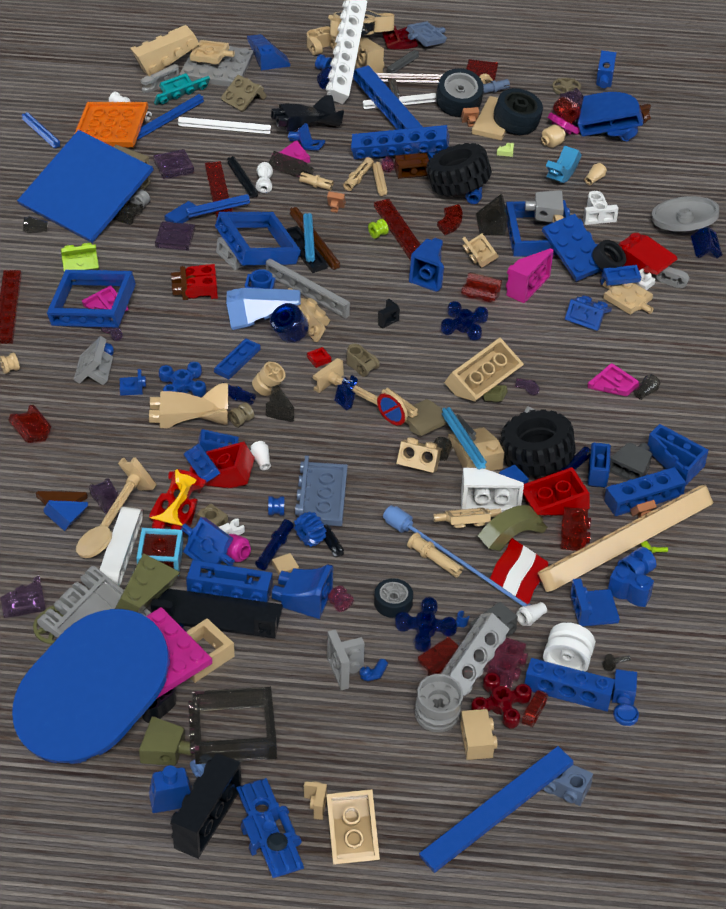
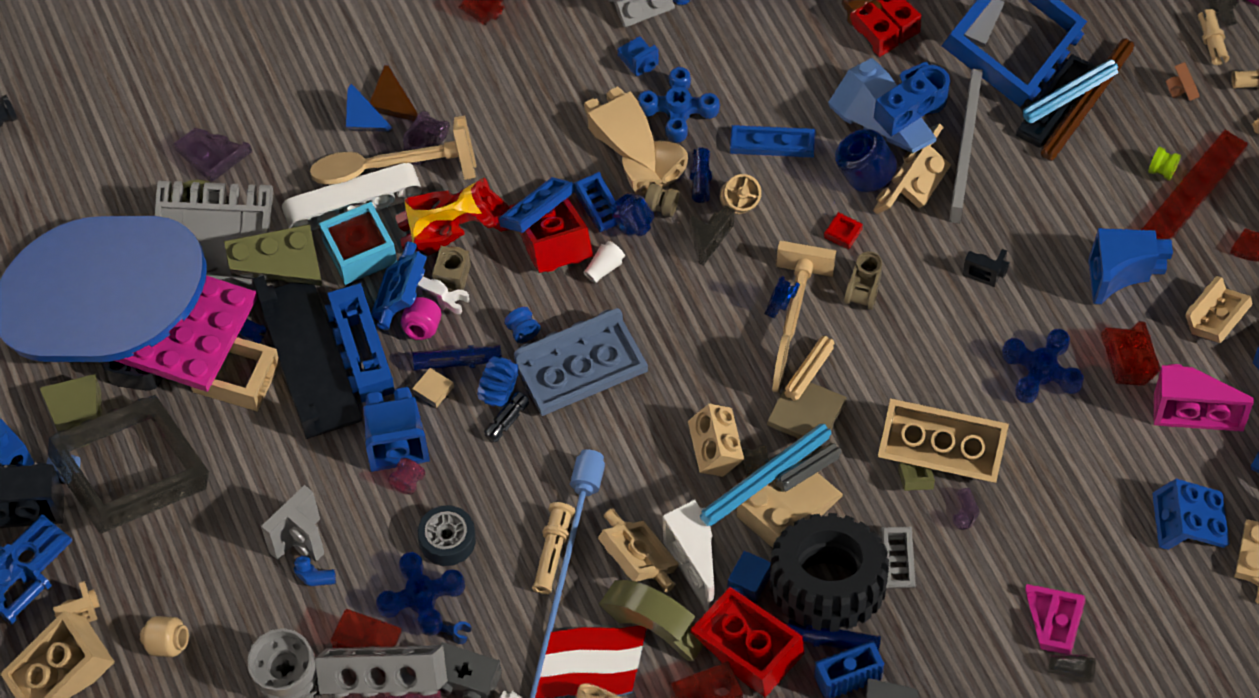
camera: 65 degrees right, 15 degrees up
(242, 427) = (632, 214): none -> clear blue head
(275, 285) = (905, 103): none -> blue brick
(370, 760) = (164, 636): none -> tan head

